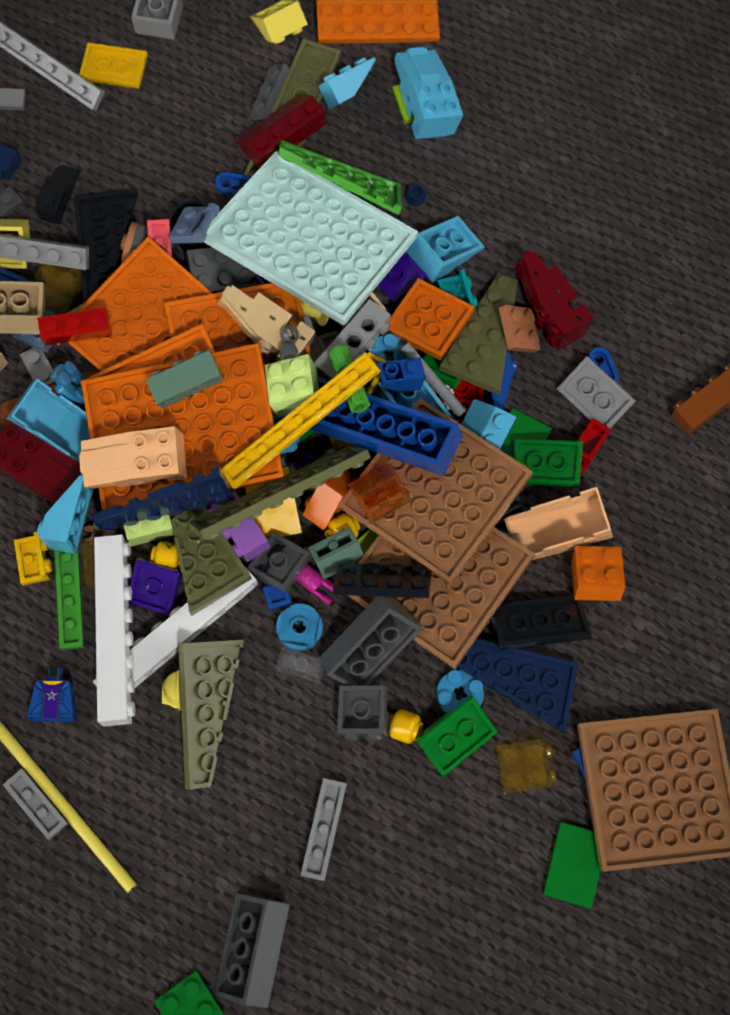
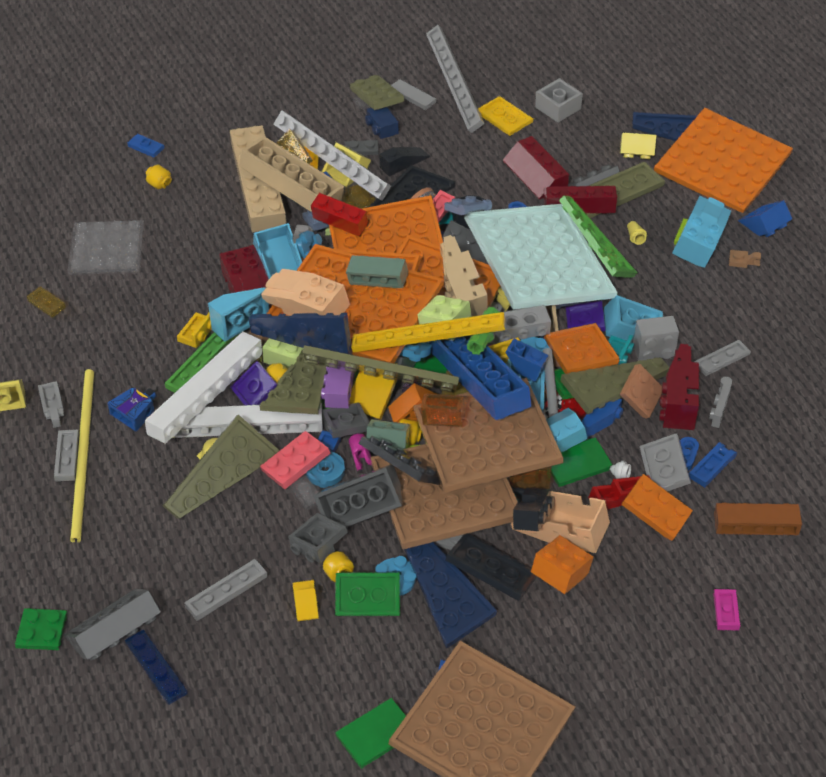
camera: 40 degrees right, 25 degrees down
(203, 116) = (535, 166): none -> slope
(266, 640) = (295, 459): none -> coral plate
(285, 335) = (471, 285): dark grey hinge -> none
(288, 350) = (457, 292): dark grey hinge -> none
(330, 958) = (156, 667): none -> clear blue plate
(346, 84) = (645, 198): medium azure slope -> none
(363, 135) = (636, 233): none -> light yellow cone
(402, 782) = (305, 600): none -> yellow slope
(416, 195) = (643, 284): dark blue plate -> none
(469, 35) = (767, 218): none -> blue slope
(480, 101) = (741, 258): none -> medium nougat plate
(486, 257) = (655, 338): none -> light grey brick
(525, 766) = (399, 648): clear yellow plate -> none
(547, 554) = (533, 509): none -> black arch
(551, 232) = (722, 357): none -> light grey tile
(551, 461) = (587, 477): green tile -> none
(563, 429) = (621, 470): none -> white plate
(591, 287) = (720, 401): none -> light grey plate
(626, 448) = (657, 507): none -> orange plate
(633, 363) = (712, 464): none -> blue plate

